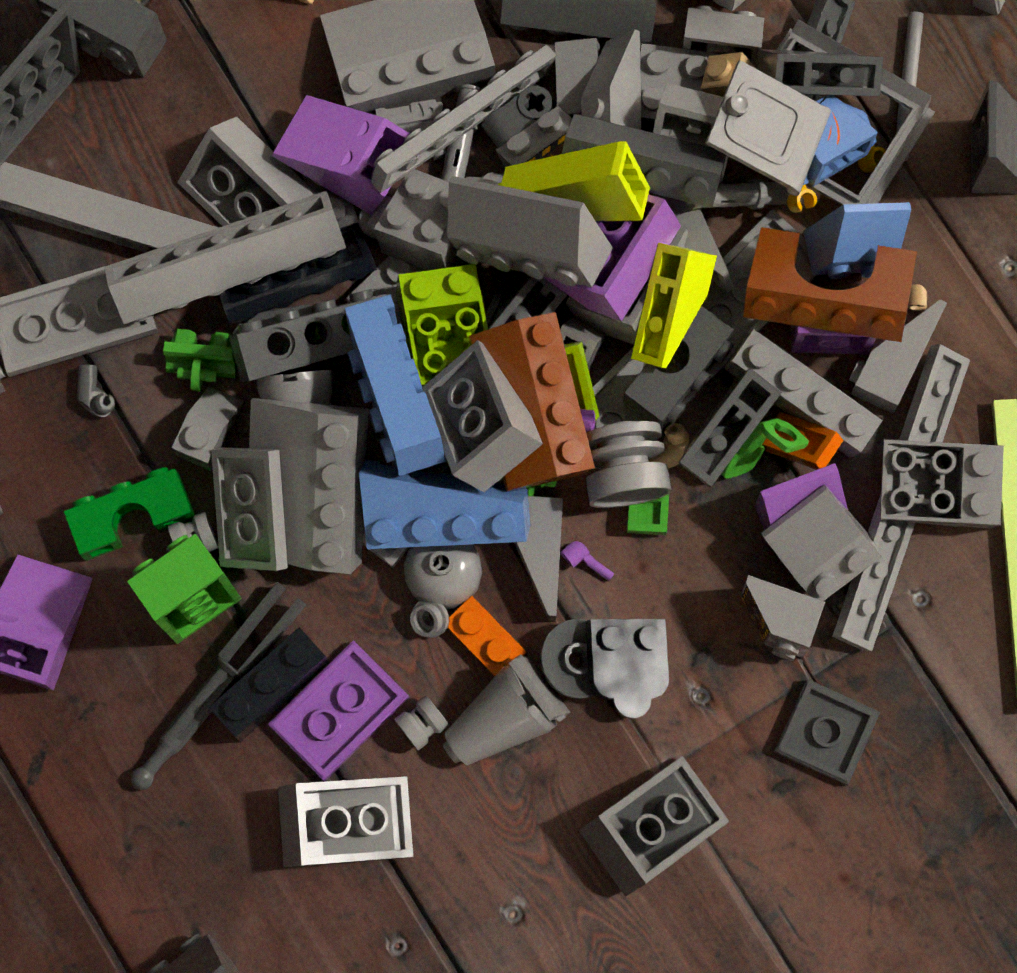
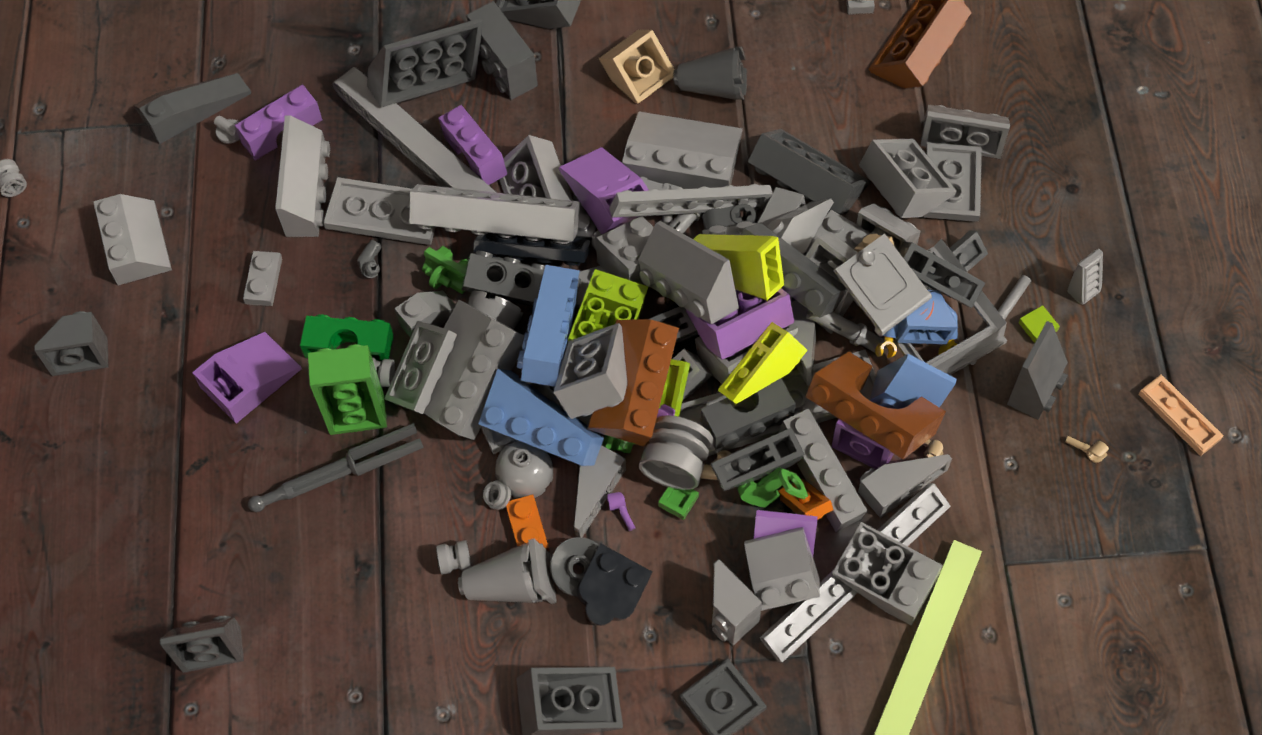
camera: 25 degrees right, 15 degrees down
(126, 164) = (467, 137): none -> medium lavender arch
(269, 684) = (370, 484): black brick -> none
(339, 710) = (405, 525): medium lavender tile -> none
(345, 821) = (367, 594): light grey slope -> none
(960, 69) = (1035, 321): none -> lime tile

